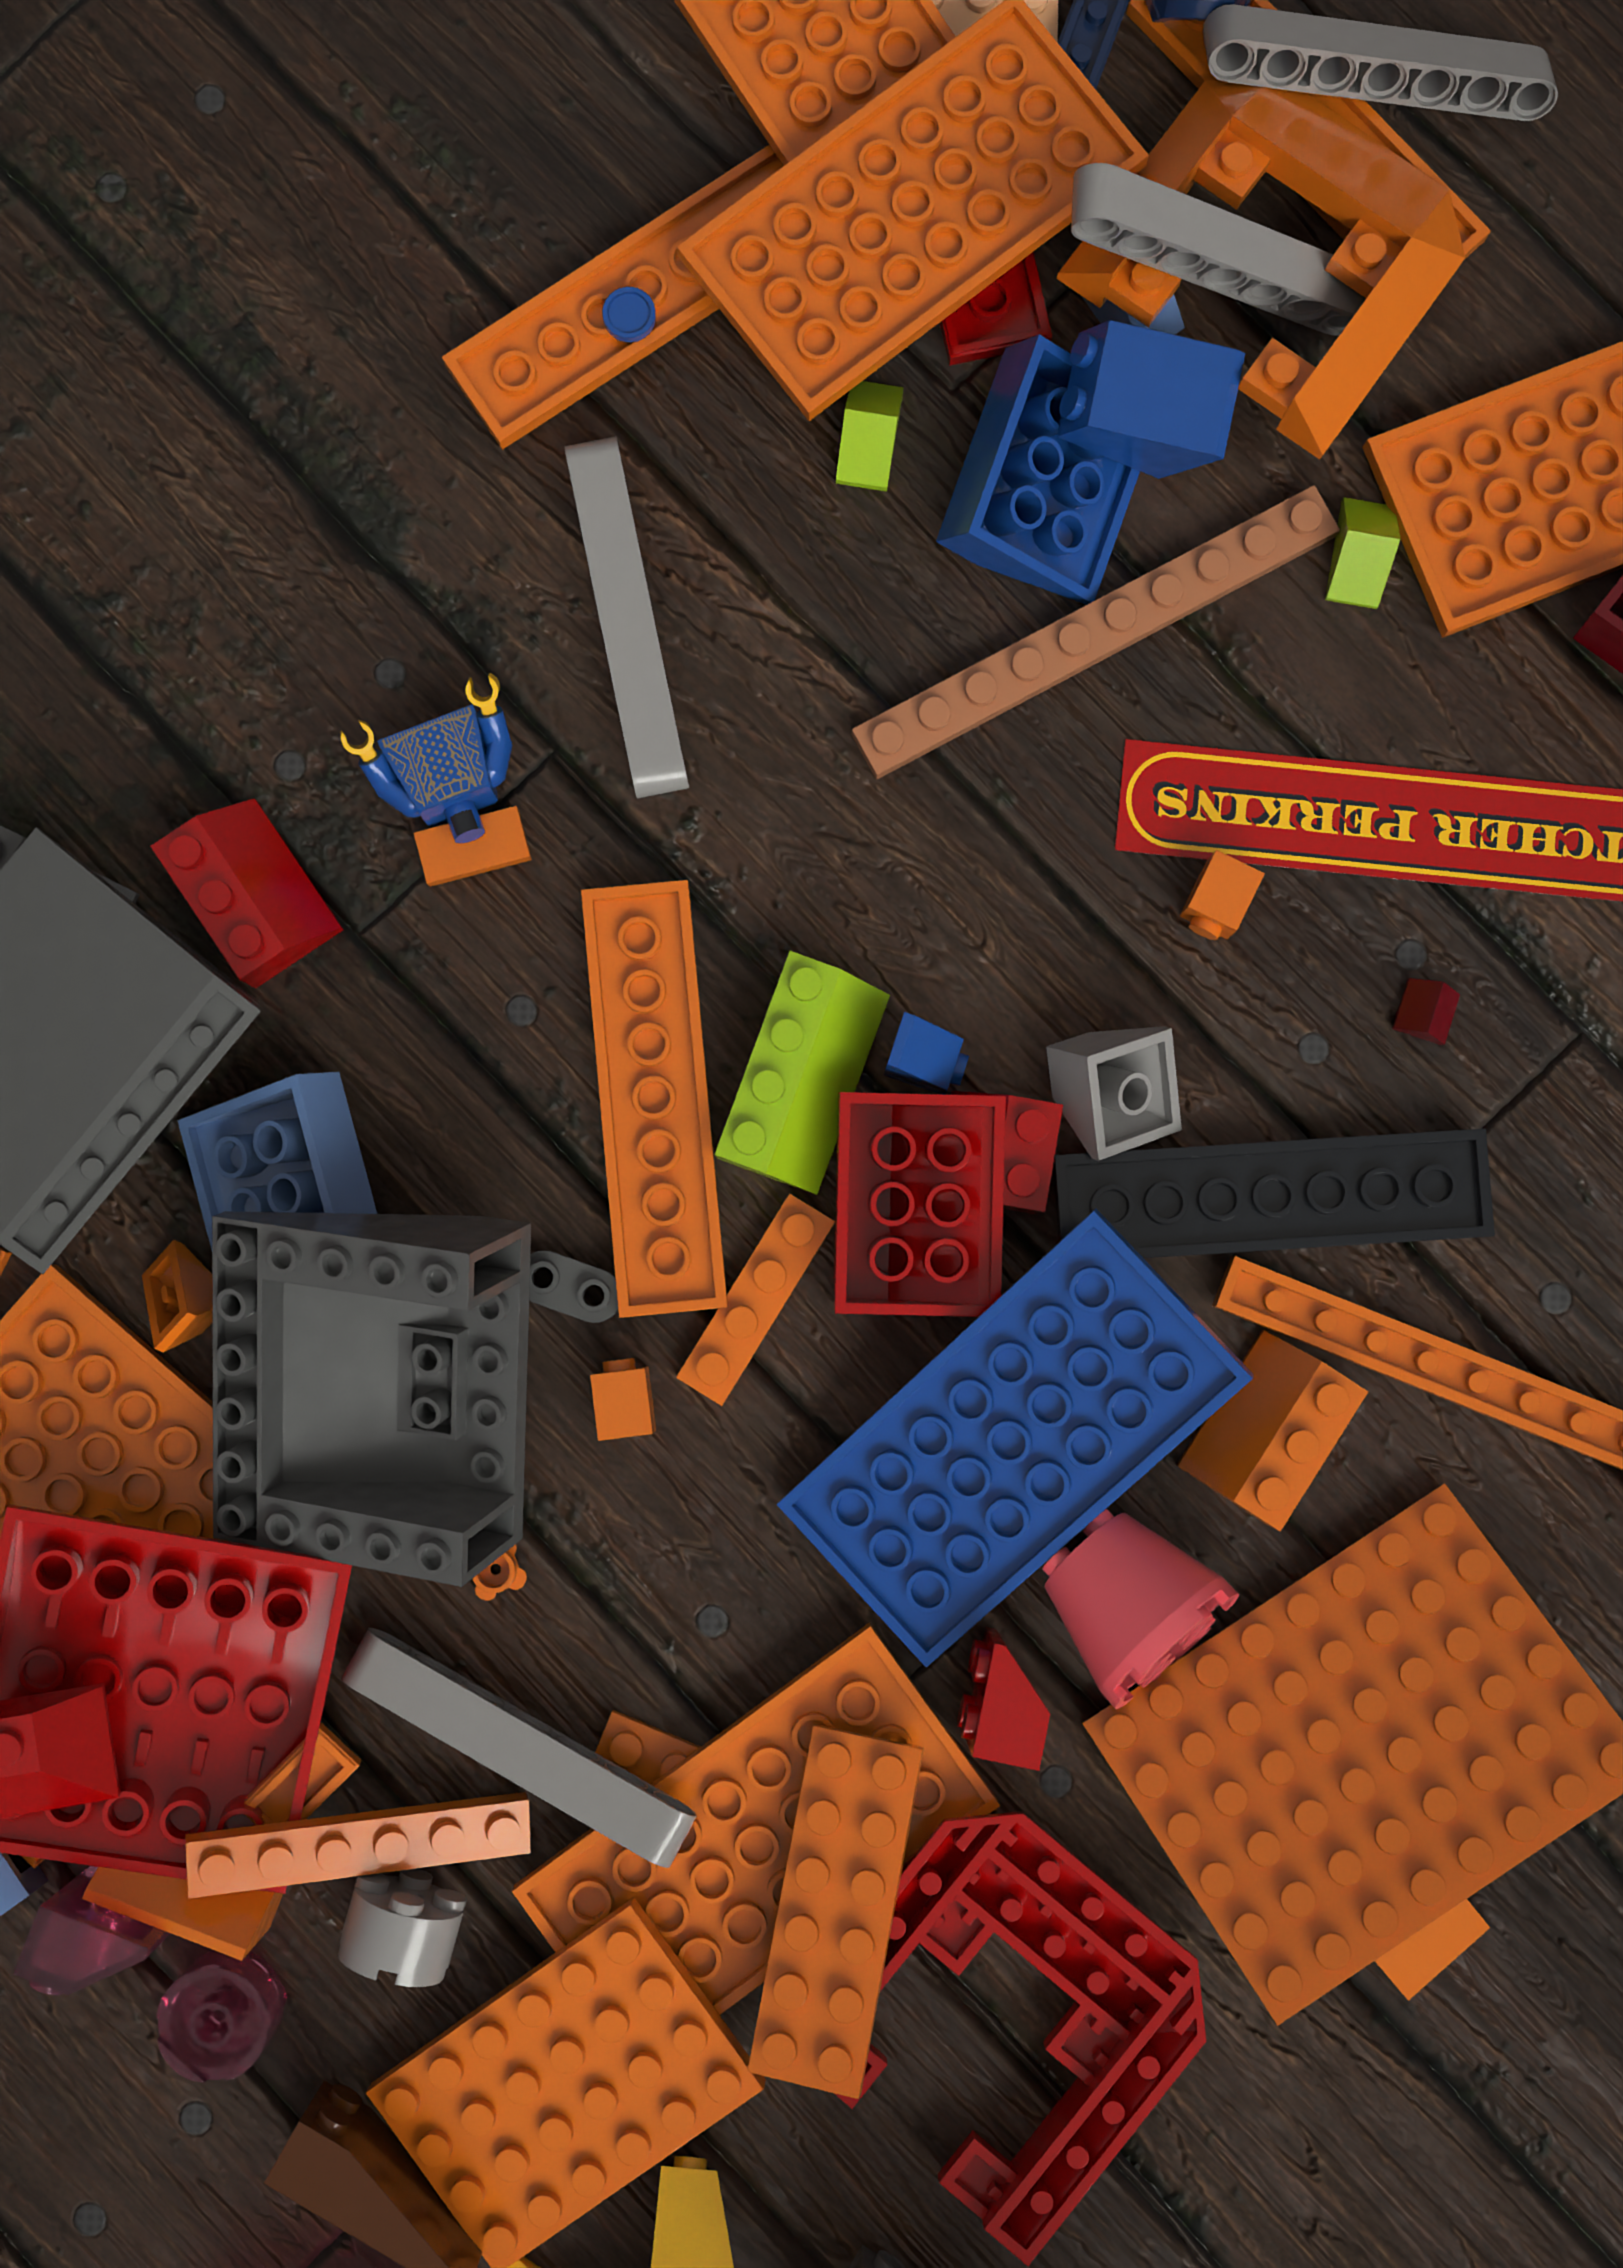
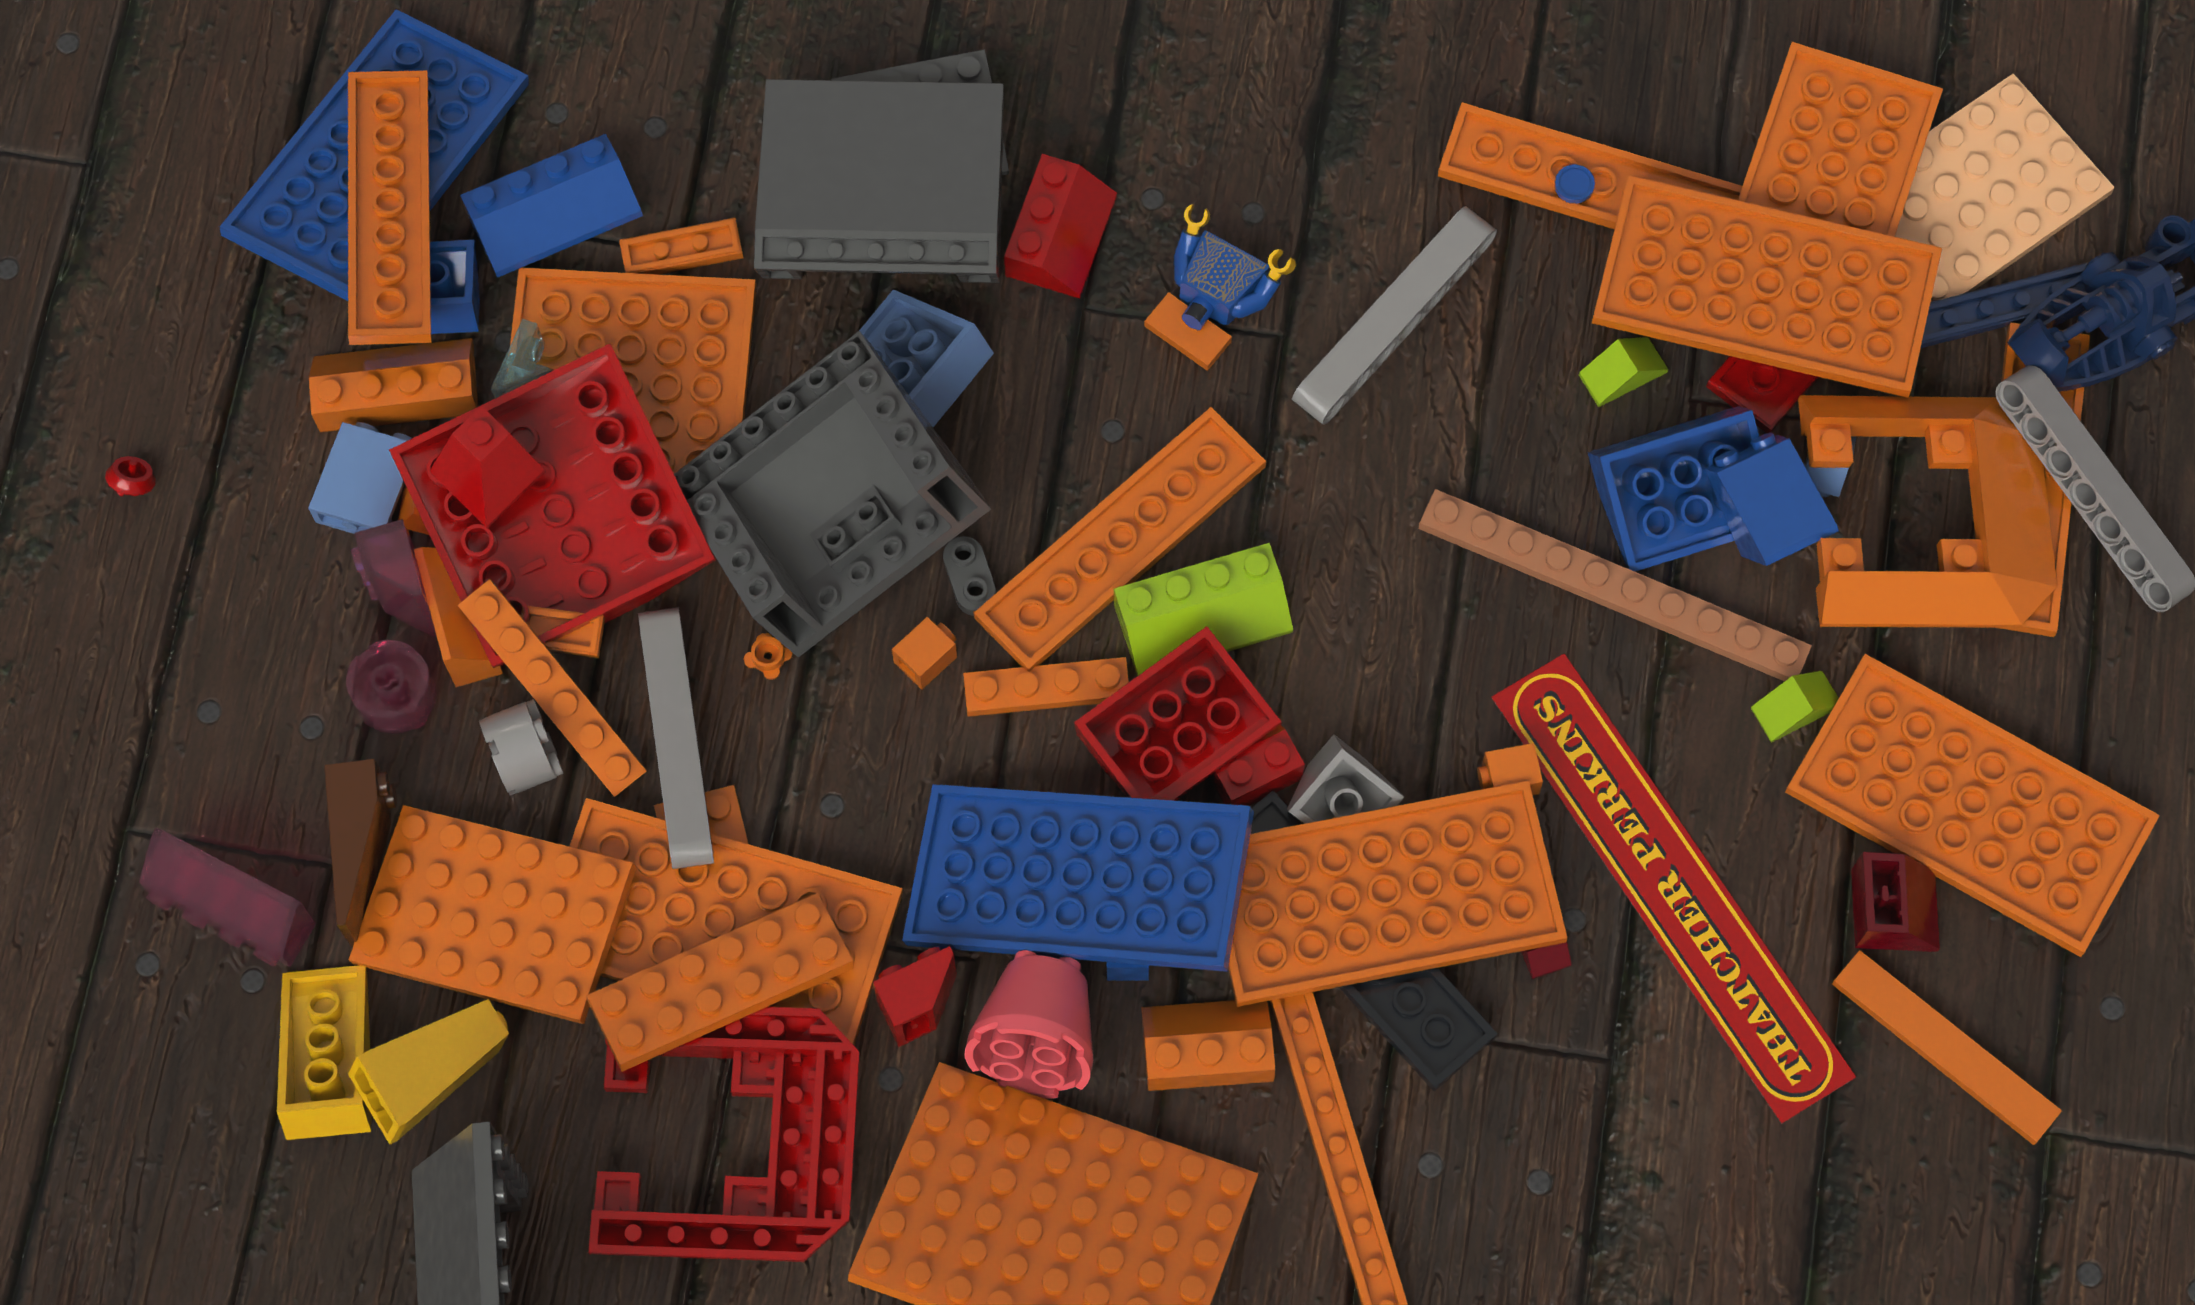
camera: 55 degrees right, 15 degrees down
(177, 1297) = (789, 360): orange slope -> none
(926, 1056) = (1270, 665): blue slope -> none
(1209, 247) = (1878, 457): light grey beam -> none
(1270, 1118) = (1393, 894): none -> orange plate

